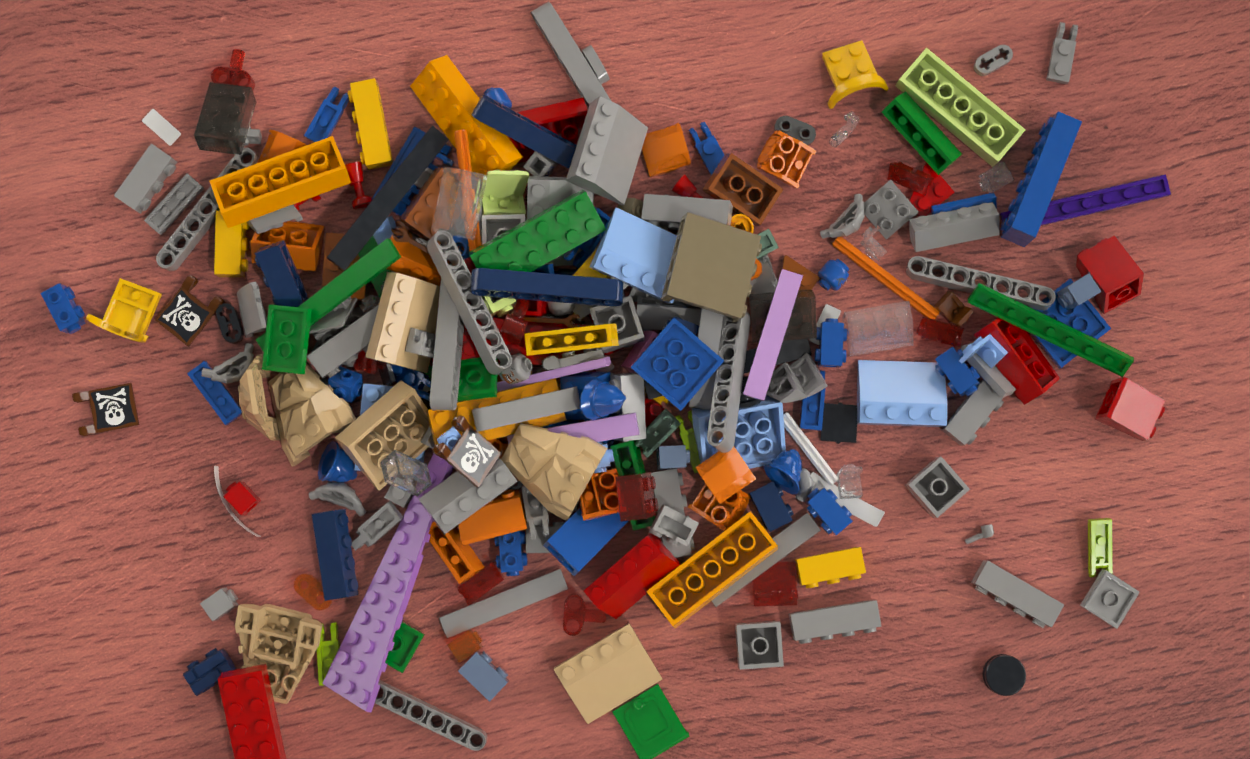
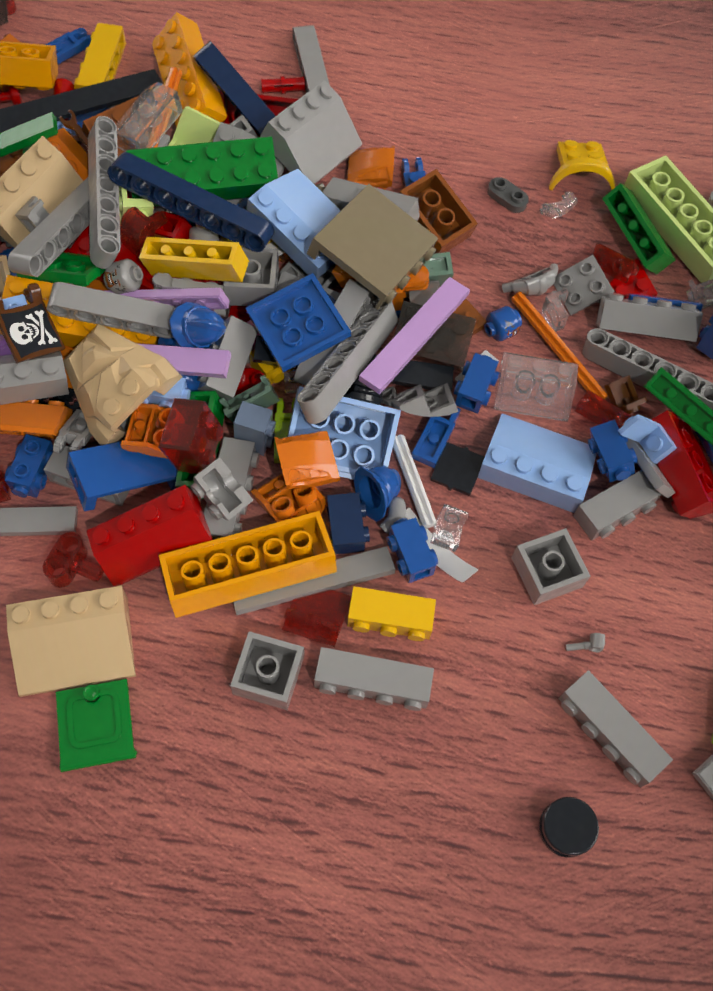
camera: 15 degrees right, 20 degrees down
(547, 82) = (298, 84): none -> red pin
(595, 64) = (334, 80): light grey beam -> none
(785, 158) = (493, 209): orange slope -> none

